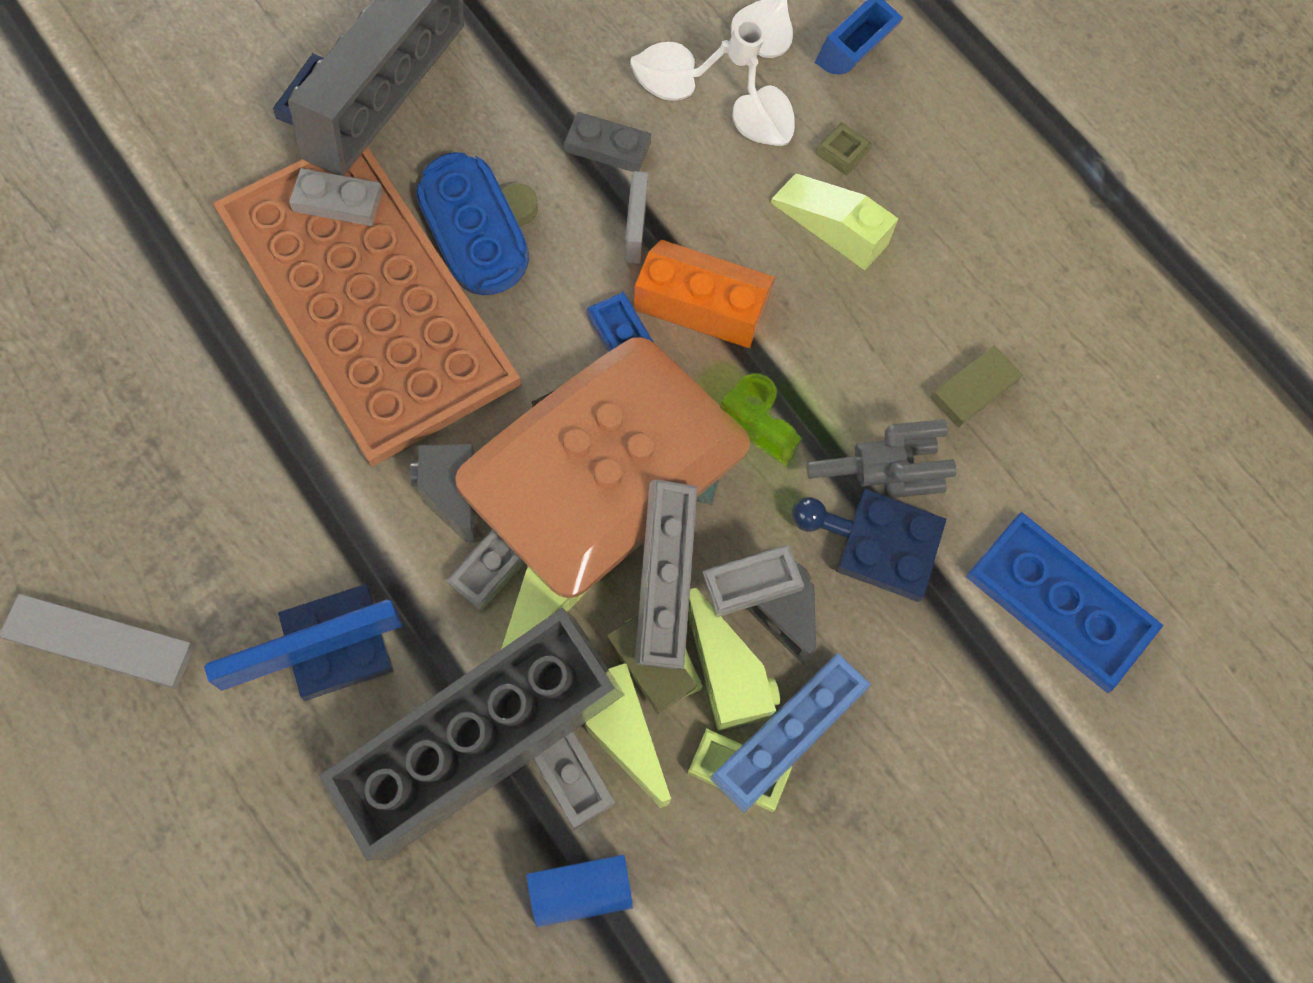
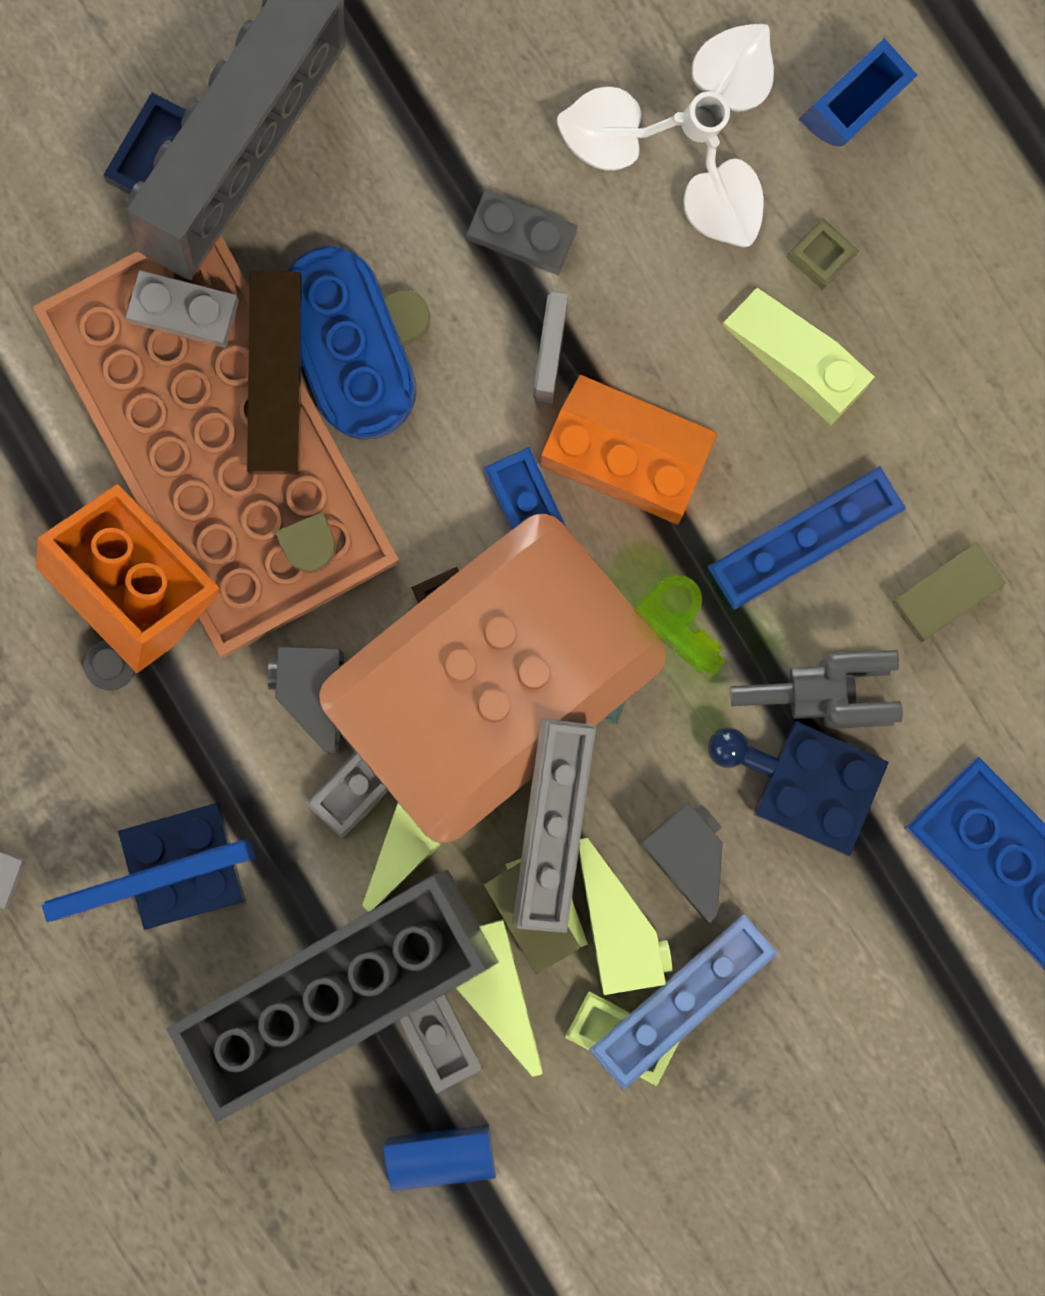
camera: 10 degrees right, 15 degrees up
(273, 475) = (106, 668): none -> dark grey plate
(285, 399) = (125, 577): none -> orange slope
(412, 241) = (274, 373): none -> dark brown tile
(443, 365) = (308, 543): none -> olive tile
(752, 580) = (652, 836): light grey tile -> none
(854, 352) = (806, 538): none -> blue tile

